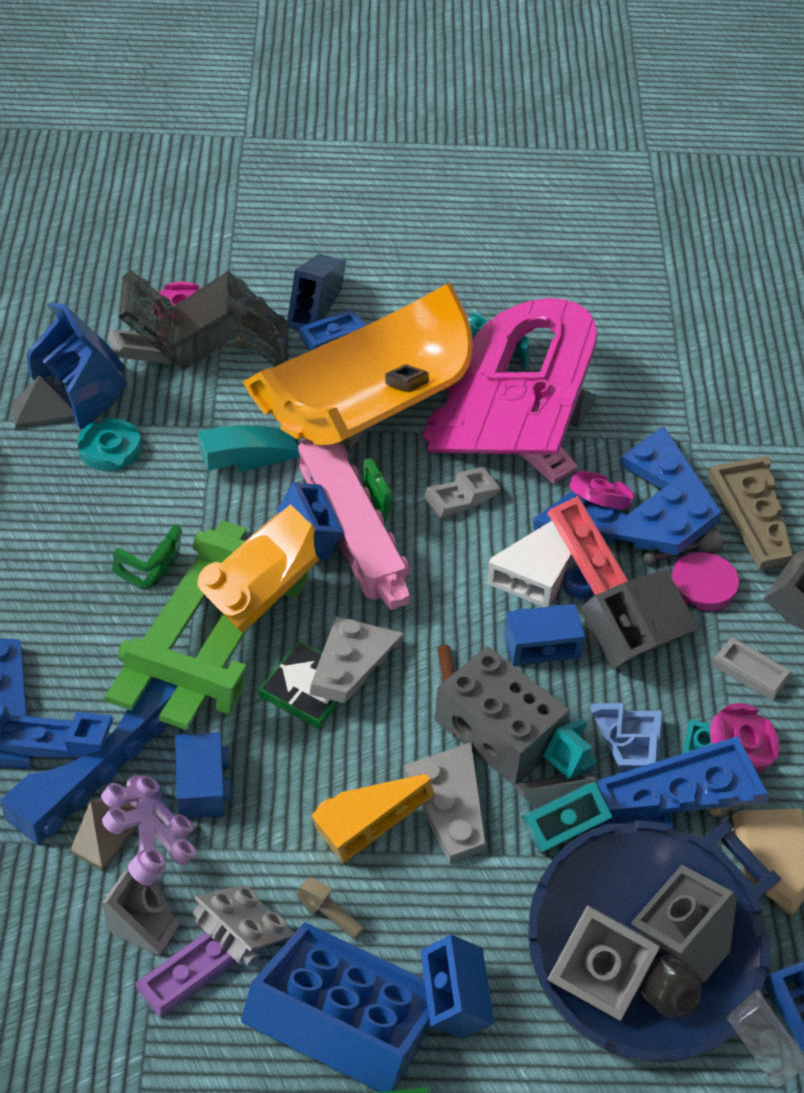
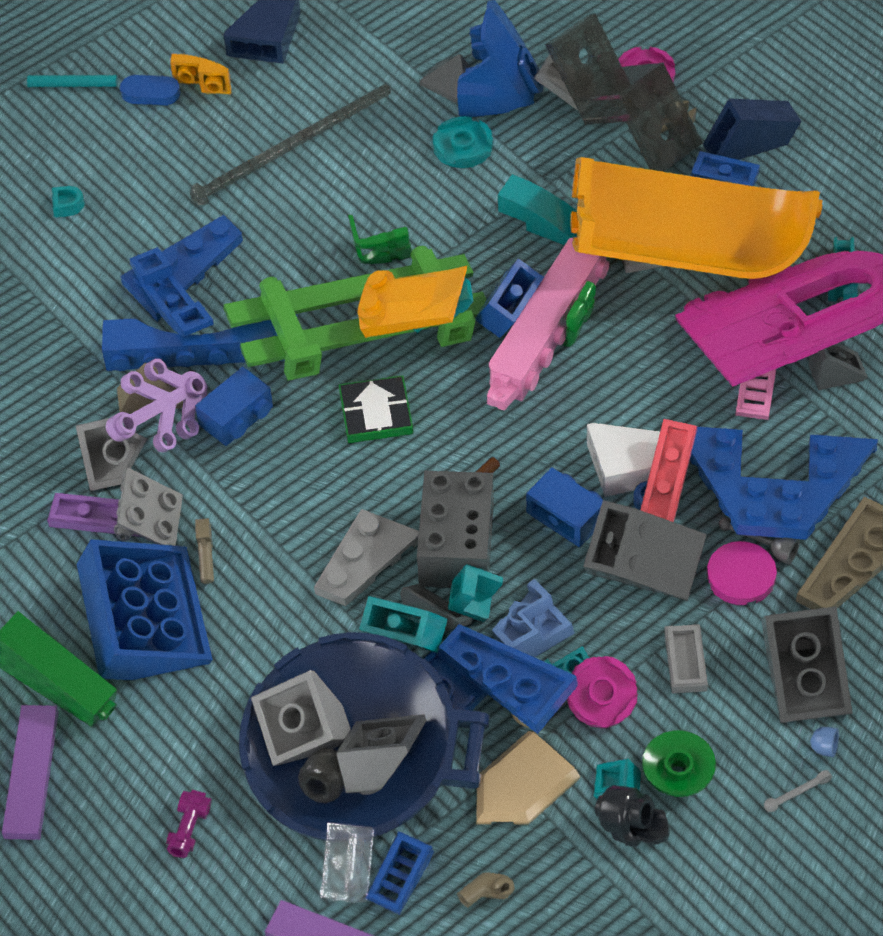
camera: 55 degrees right, 5 degrees up
(350, 656) = (418, 409): light grey wing -> none
(366, 813) = (288, 513): light orange slope -> none
(407, 377) = (723, 248): black tile -> none
(457, 987) = (209, 657): blue brick -> none
(466, 492) = (661, 369): light grey slope -> none
(598, 490) = (750, 444): dark pink tile -> none

